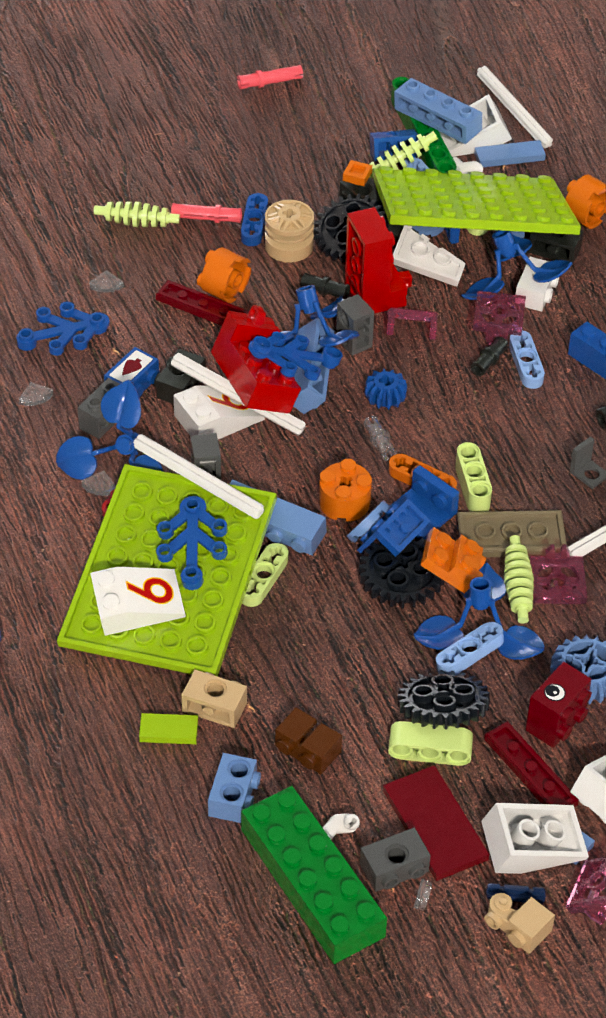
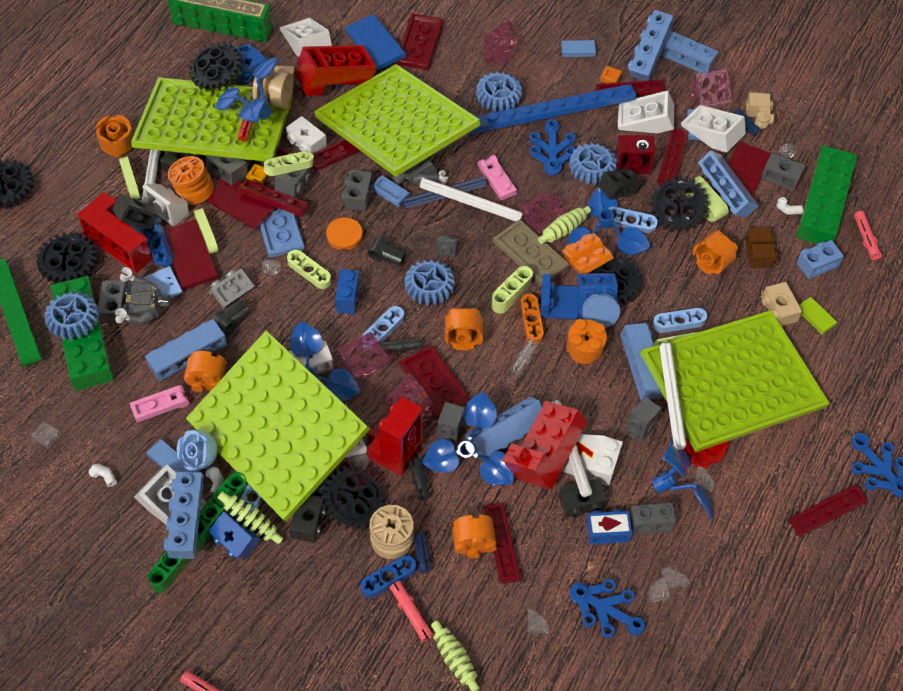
camera: 130 degrees left, 10 degrees up
(36, 373) = (659, 591): none -> clear tile
(136, 597) = (775, 371): white slope -> none
(192, 536) = (713, 370): blue plant -> none
(205, 868) = (873, 249): none -> coral pin
(252, 250) = (422, 553): none -> dark blue axle
(293, 609) = (674, 326): none -> light blue beam
(295, 352) = (526, 421): blue plant -> none
(340, 677) = (715, 253): none -> orange brick
(357, 173) = (301, 521): orange plate -> none
(385, 389) = (483, 378): blue gear -> none
(422, 360) = (435, 379): none -> dark red tile
(422, 761) = (728, 184): none -> medium blue brick
(457, 400) = (463, 328): none -> orange brick
(504, 160) = (196, 450): none -> light blue cylinder
(514, 106) = (112, 498): white axle -> none
(523, 661) = (619, 183): none -> pearl dark grey brick
(545, 111) = (105, 472): none -> white arm
(546, 425) = (426, 277): none -> medium blue gear
(588, 162) = (159, 403): none -> bright pink plate

